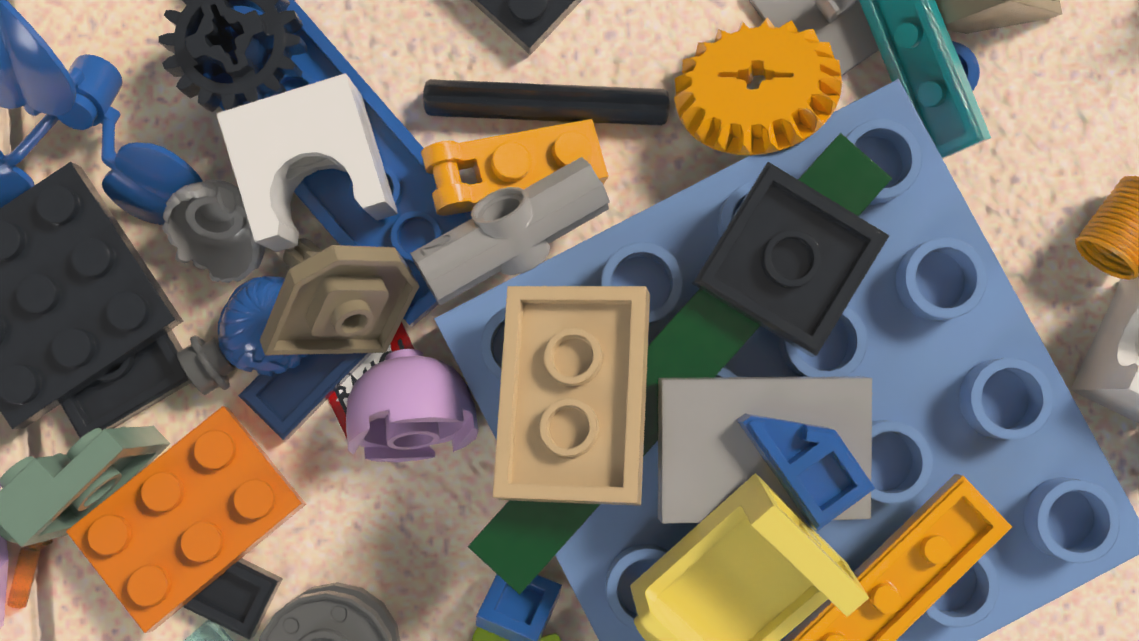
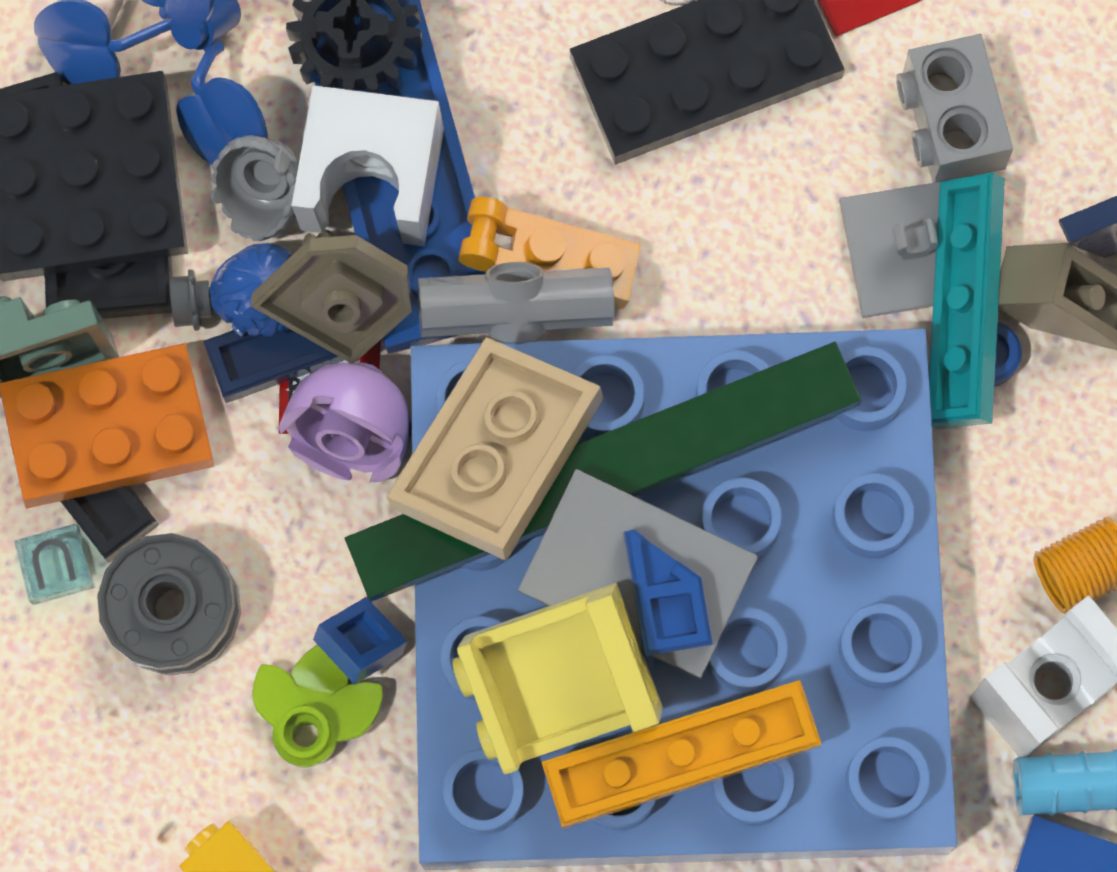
camera: 30 degrees right, 10 degrees down
(546, 102) = (607, 211): black axle -> none
(788, 107) = (835, 301): light orange gear -> none
(790, 259) = (736, 424): black tile -> none

